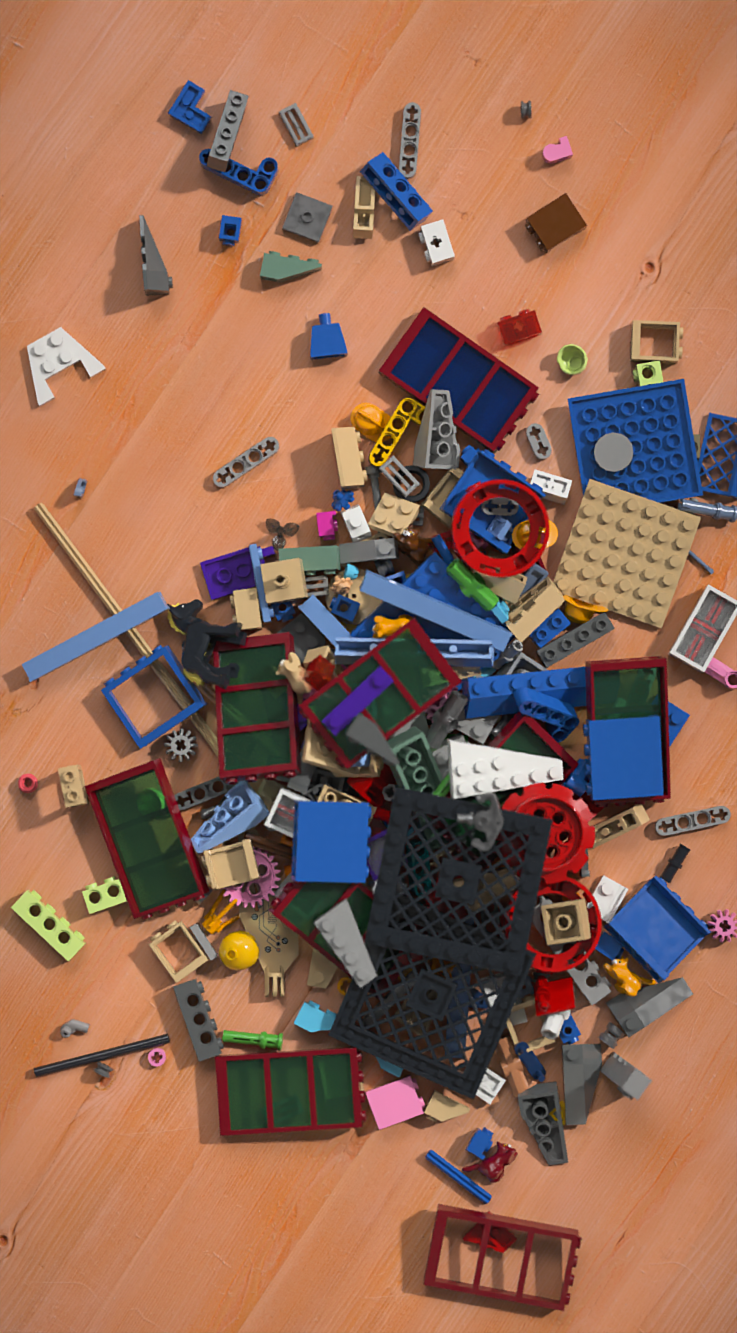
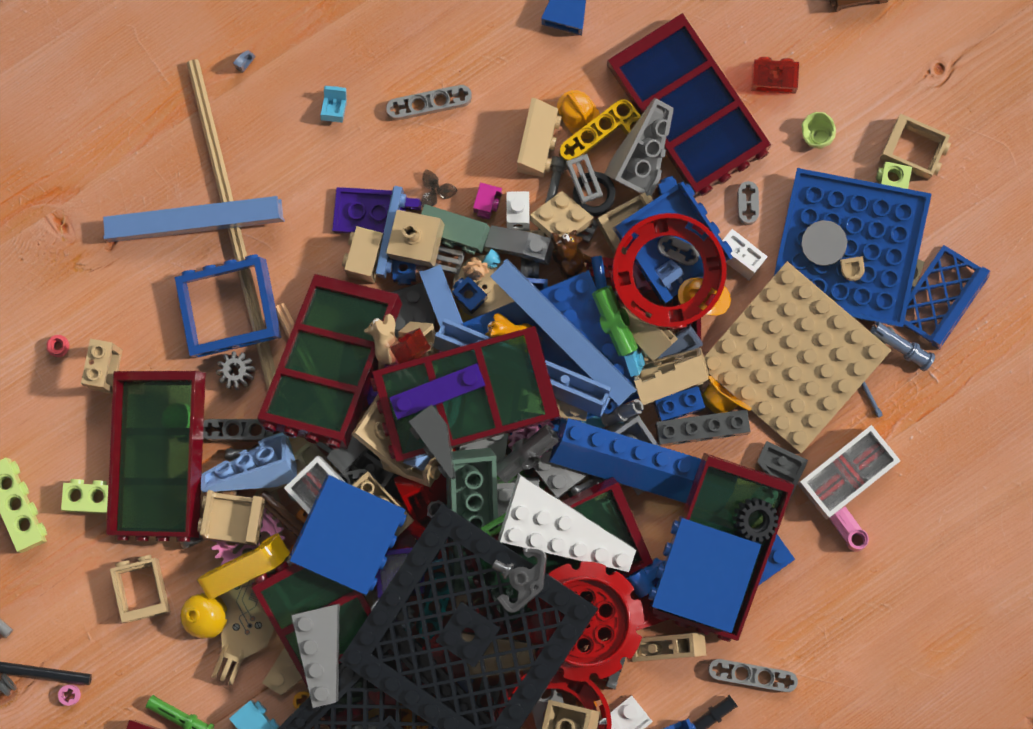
camera: 30 degrees right, 5 degrees down
(169, 495) = (334, 104): none -> medium azure bracket
(200, 643) = (301, 269): black animal -> none
(202, 1050) = (121, 683): dark grey brick -> none
(206, 945) = (171, 590): light grey tile -> none
(213, 922) = (189, 574): light orange plant -> none
(258, 900) = (245, 567): none -> yellow beam
(341, 499) = (513, 180): blue plant -> none
(558, 715) = (652, 499): blue beam -> none
(644, 464) = (852, 268): none -> tan tile
(649, 643) = (781, 463): none -> dark grey wing
(657, 701) = (766, 526): none -> black tyre

